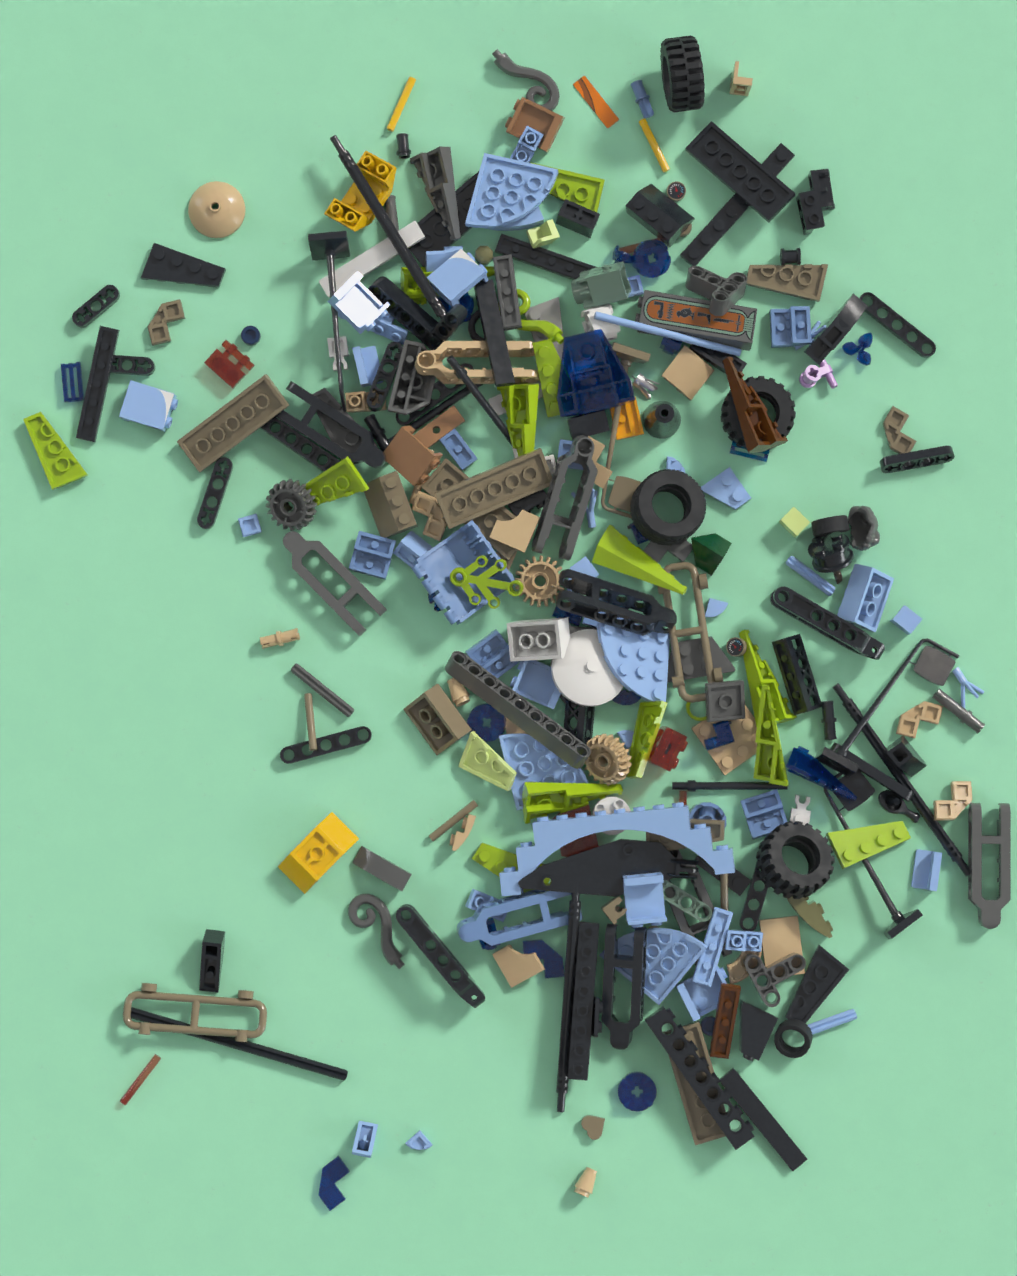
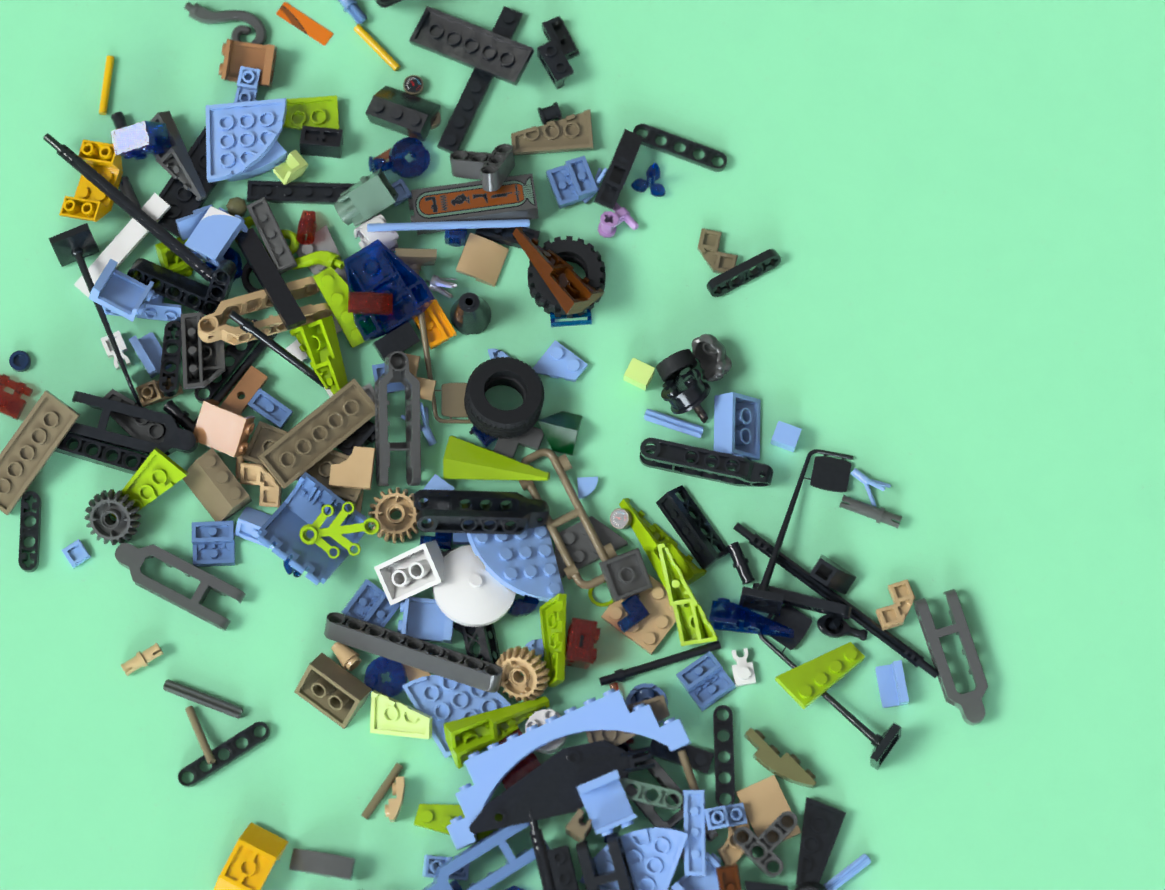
camera: 15 degrees left, 10 degrees down
(416, 168) = (140, 139): none -> clear blue brick
(541, 294) = (306, 225): none -> clear red hinge
(576, 385) = (370, 303): none -> clear red slope
(810, 844) = (748, 736): black tyre -> none
(924, 711) = (835, 524): tan tile -> none

